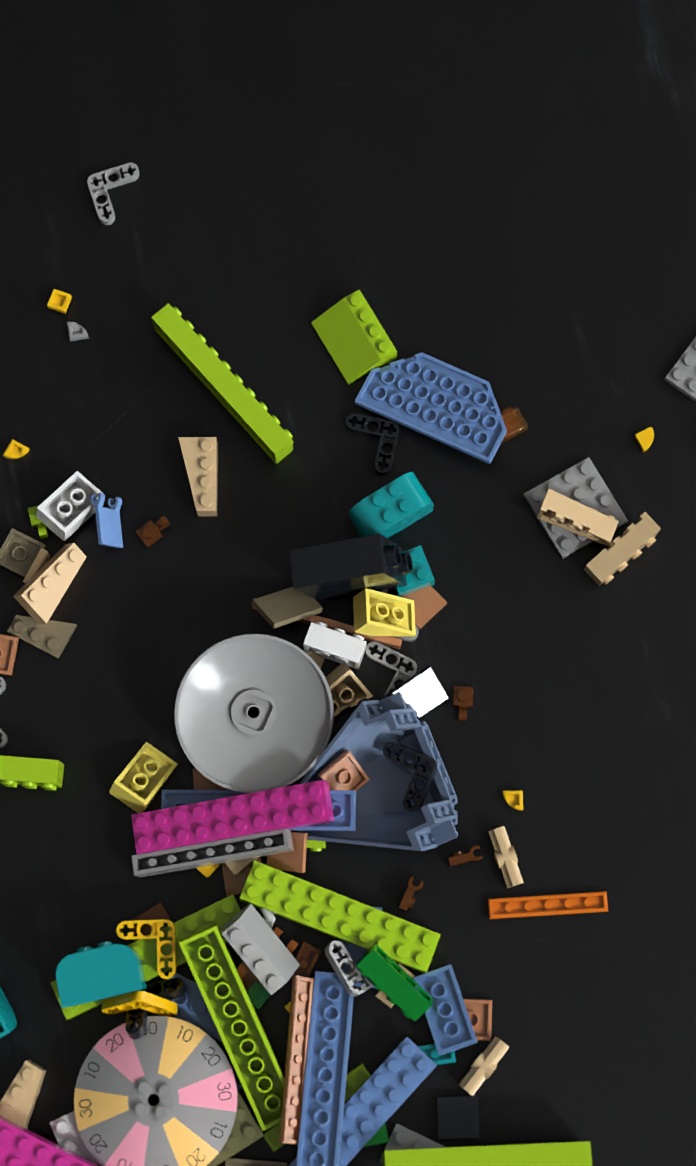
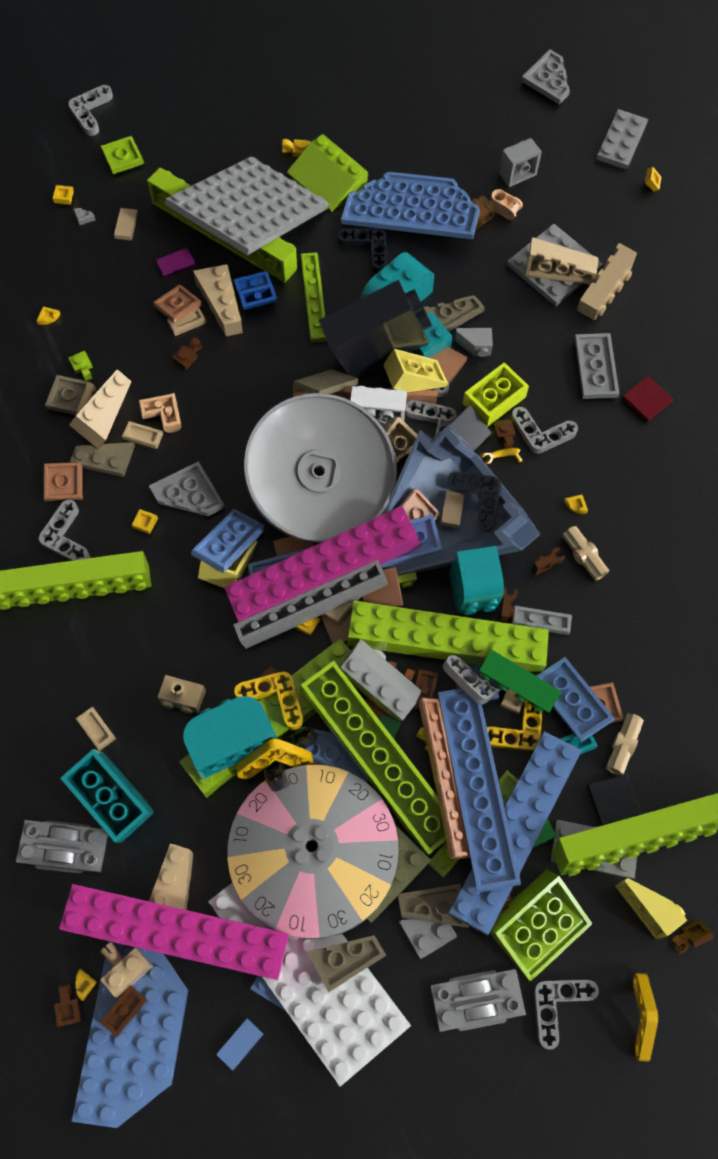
camera: 15 degrees left, 10 degrees down
(67, 911) = (181, 694): none -> tan brick
(68, 506) = (107, 343): white brick -> none
(69, 717) = (144, 521): none -> yellow plate
(86, 616) = (142, 435): none -> tan tile
(108, 521) = (145, 349): medium blue flag -> none
(118, 593) = (166, 408): none -> light nougat brick
(120, 352) = (126, 224): none -> tan tile
(120, 693) = (188, 491): none -> light grey plate
(133, 262) = (122, 154): none -> lime plate
(146, 761) = (228, 540): none -> medium blue tile
(154, 468) = (177, 303): none -> nougat tile
(160, 489) = (189, 322): none -> tan tile
(163, 413) = (175, 261): none -> magenta tile
(240, 473) = (255, 290): none -> blue brick
(254, 371) = (247, 204): none -> light grey plate
(302, 490) = (313, 295): none -> lime tile
(331, 294) = (296, 148): none -> yellow plate
(380, 873) = (476, 580): none -> teal brick
(382, 778) = (452, 509): none -> tan tile
(392, 1029) = (525, 732): none -> yellow beam
(441, 917) = (542, 619): none -> light grey tile
(447, 545) = (457, 312): none -> dark tan wing
(461, 586) = (475, 340): none -> light grey slope
(463, 657) = (496, 394): none -> neon yellow brick
(463, 725) = (501, 453): none -> yellow piece
(495, 711) = (537, 435): none -> light grey beam
(542, 422) = (505, 204): none -> light nougat piece
(547, 905) = (636, 587): orange tile -> none
(571, 373) = (519, 162): none -> light grey brick
(582, 644) = (596, 366): none -> light grey plate
(626, 695) = (647, 399): none -> dark red tile
(641, 259) = (548, 77): none -> light grey plate
(645, 438) = (595, 202): yellow tile -> none

